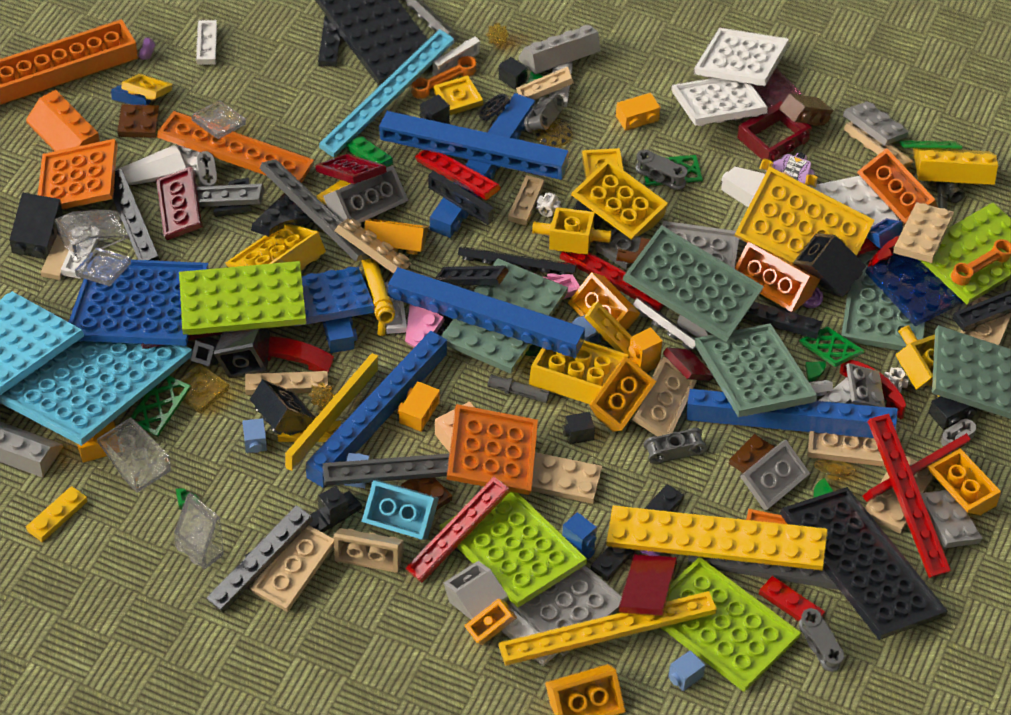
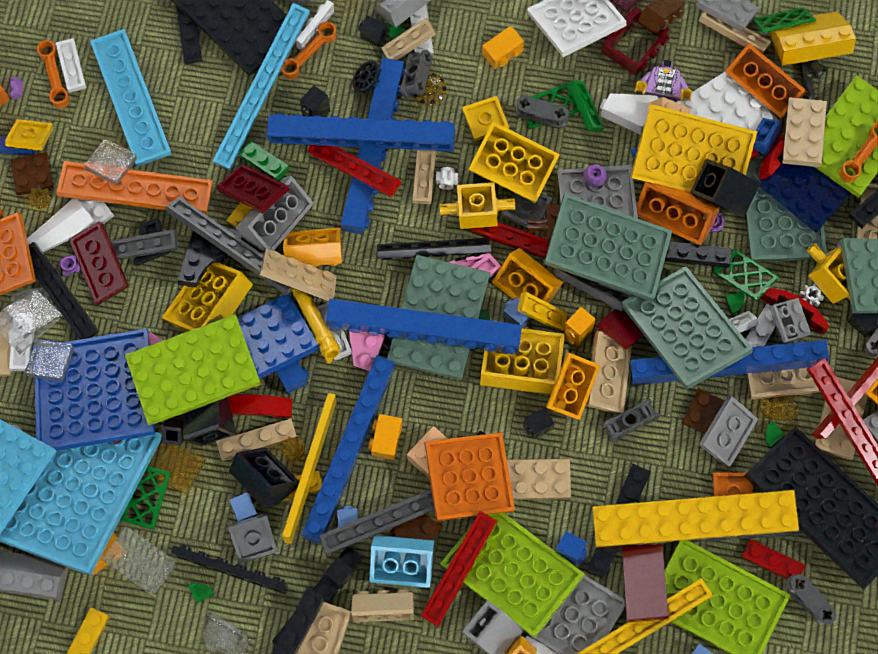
camera: 10 degrees left, 20 degrees up
(139, 139) = (39, 197): none -> clear yellow gear
(149, 200) = (69, 260): none -> medium lavender plate
(187, 46) = (53, 74): none -> orange piece
(210, 170) = (118, 217): light grey beam -> none
(228, 487) = (238, 571): none -> black plate
(254, 460) = (252, 538): none -> dark grey plate
(256, 79) = (130, 97): none -> medium azure plate
(459, 94) = (328, 69): yellow plate -> none
(460, 197) = (364, 197): black plate -> none
(473, 275) = (398, 283): black plate -> none
(517, 388) = (472, 392): dark grey pin -> none
(699, 230) = (593, 180): none -> medium lavender plate
(707, 175) = (585, 106): none -> green plate

